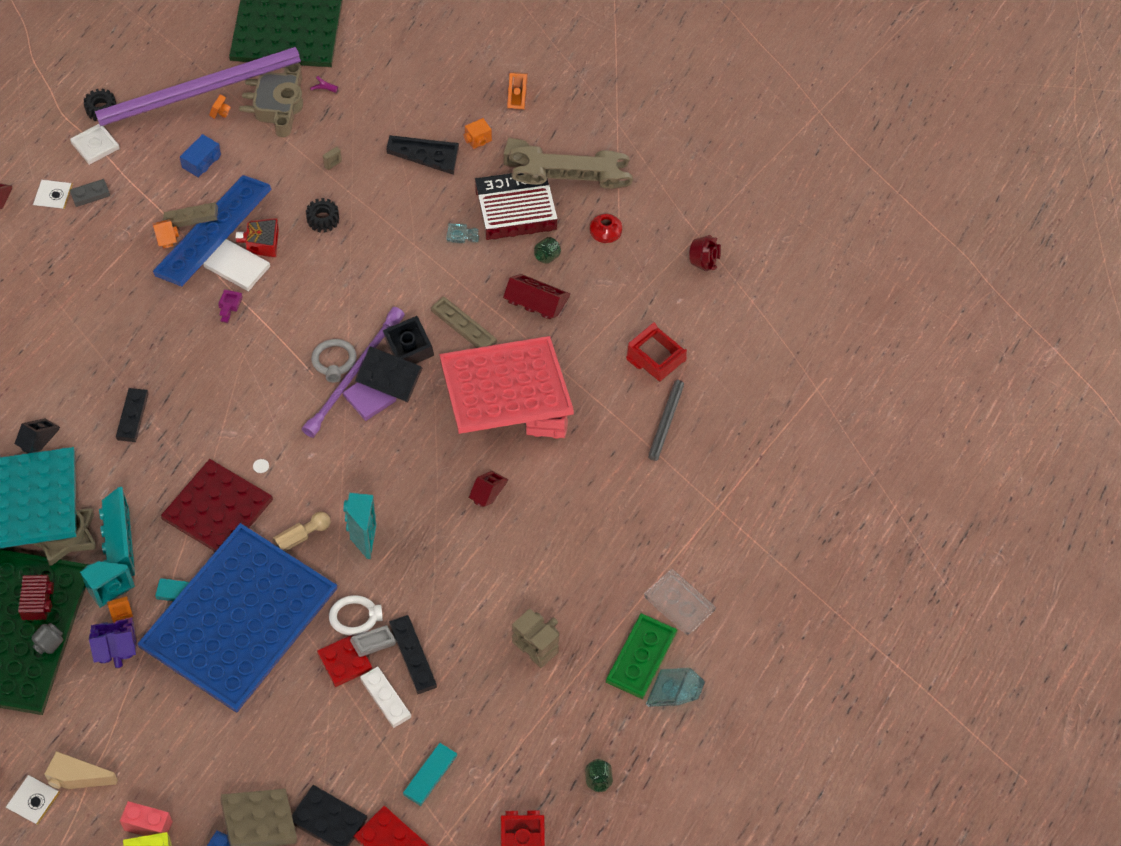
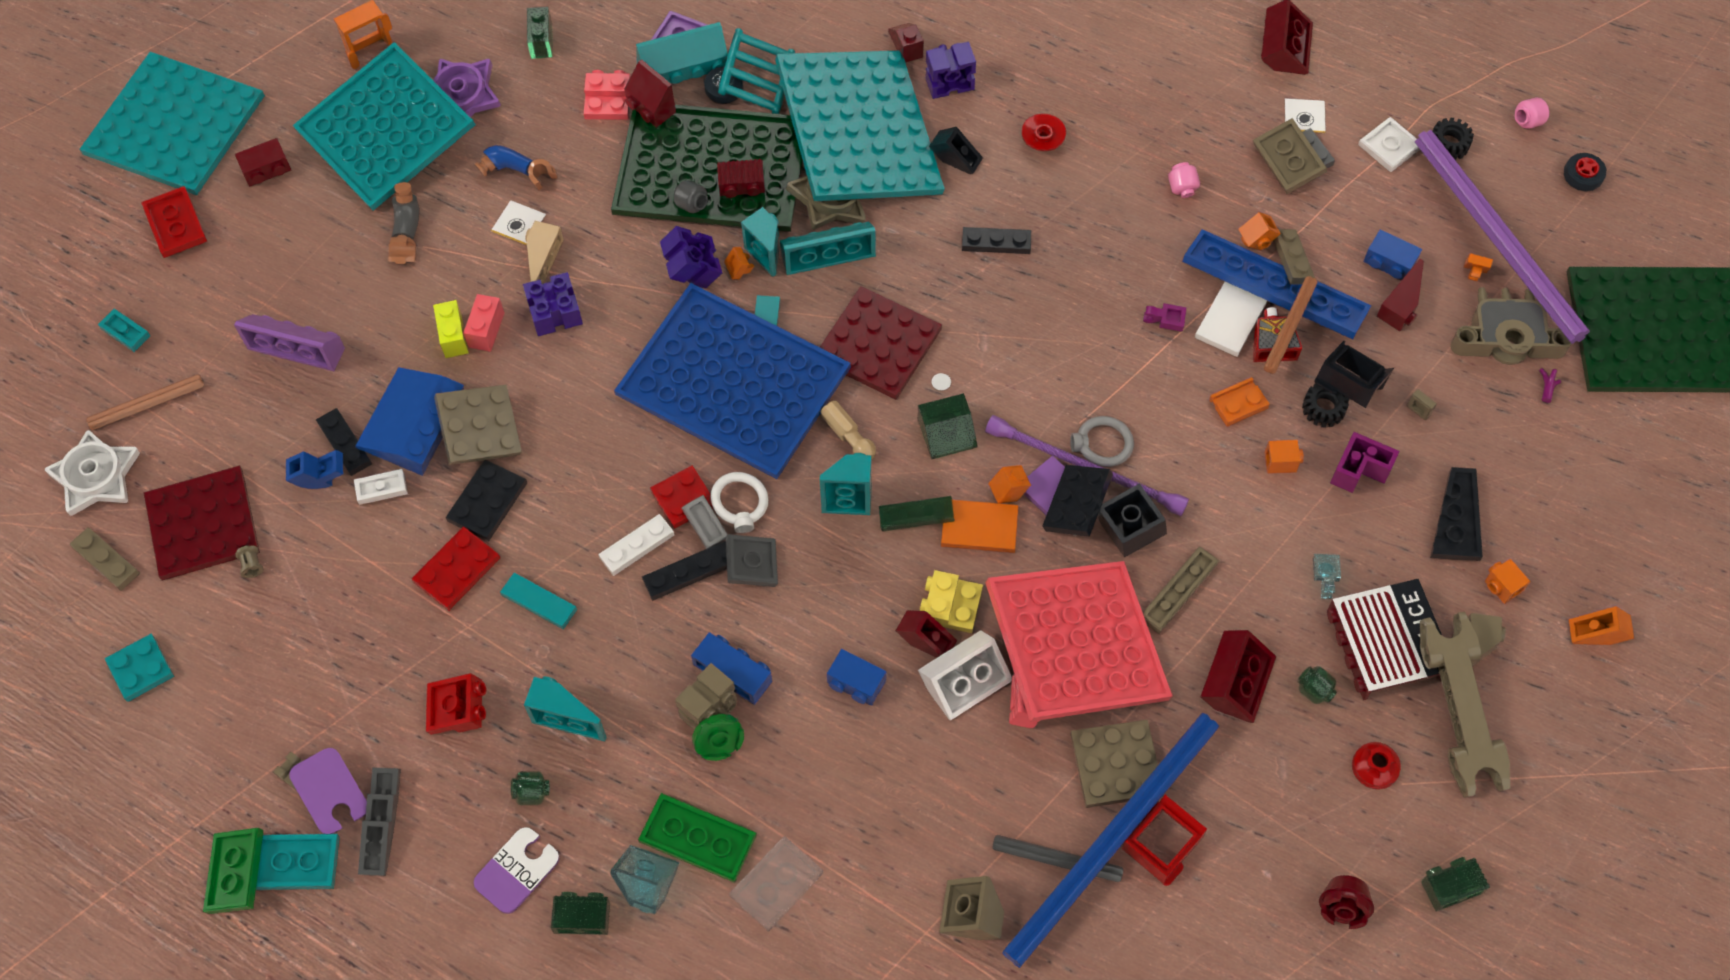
camera: 90 degrees right, 5 degrees up
(29, 363) = (1043, 125): none -> red dish
(88, 52) = (1532, 113): none -> bright pink head
(95, 205) = (1289, 156): none -> dark tan plate
(102, 277) = (1184, 180): none -> bright pink head
(136, 761) = (552, 304): none -> dark purple brick
(148, 32) = (1585, 172): none -> black wheel
(240, 154) = (1402, 302): none -> dark red slope
(257, 220) = (1290, 325): none -> nougat axle
(307, 460) = (947, 426): none -> clear green slope
(309, 192) = (1338, 379): none -> black piece
(311, 268) = (1239, 402): none -> orange plate
(364, 246) = (1283, 456): none -> orange brick
(367, 419) = (1009, 484): none -> orange brick
(376, 199) = (1366, 458): none -> magenta brick
(383, 487) = (916, 513): none -> clear green tile
(396, 447) = (981, 526): none -> orange tile
(412, 607) = (751, 560): none -> dark grey tile
(460, 470) = (952, 601): none -> light yellow plate
(498, 631) = (749, 677): none -> blue brick
(519, 537) = (856, 677): none -> blue brick
(522, 464) = (966, 674): none -> white slope
(534, 746) = (557, 708): none -> teal slope
(569, 637) = (718, 737): none -> green tile
(596, 377) = (1113, 761): none -> dark tan plate
(658, 380) = (1110, 840): none -> blue axle
(667, 792) = (513, 876): none -> piece
(691, 196) = (1454, 883): none -> clear green brick
(703, 473) = (972, 909): none -> dark tan slope
(703, 736) = (580, 914): none -> clear green brick

